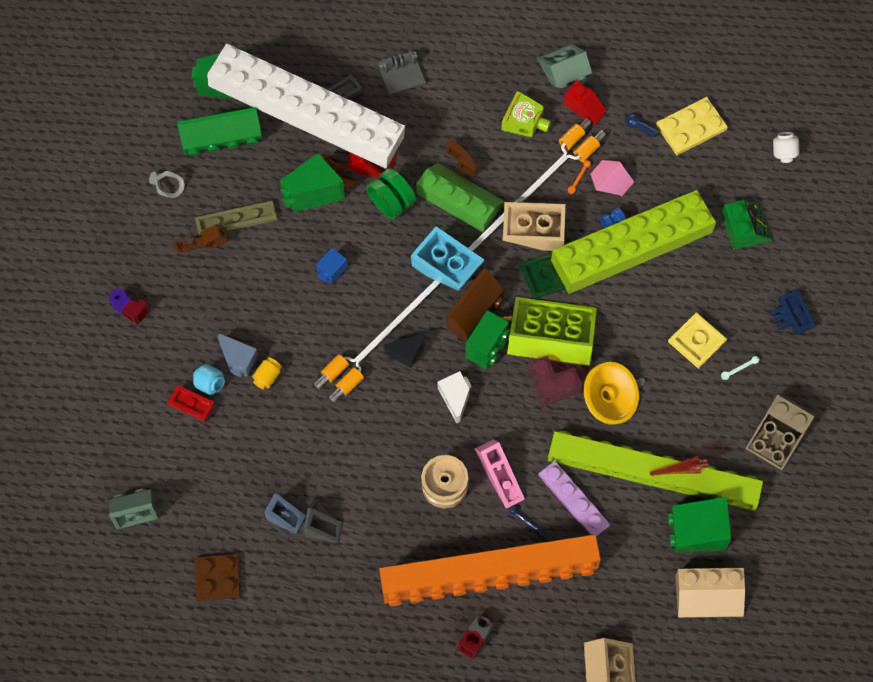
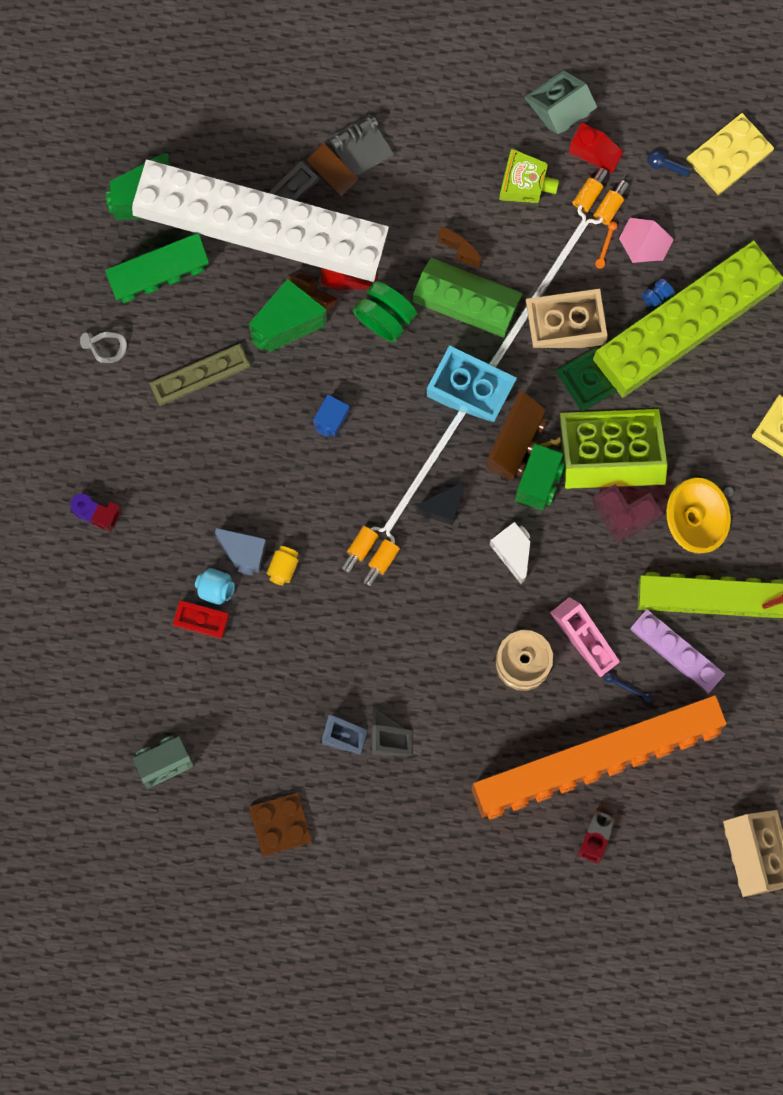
camera: 15 degrees left, 10 degrees up
(209, 238) = (173, 408): reddish brown piece -> none
(374, 84) = (332, 169): none -> reddish brown slope

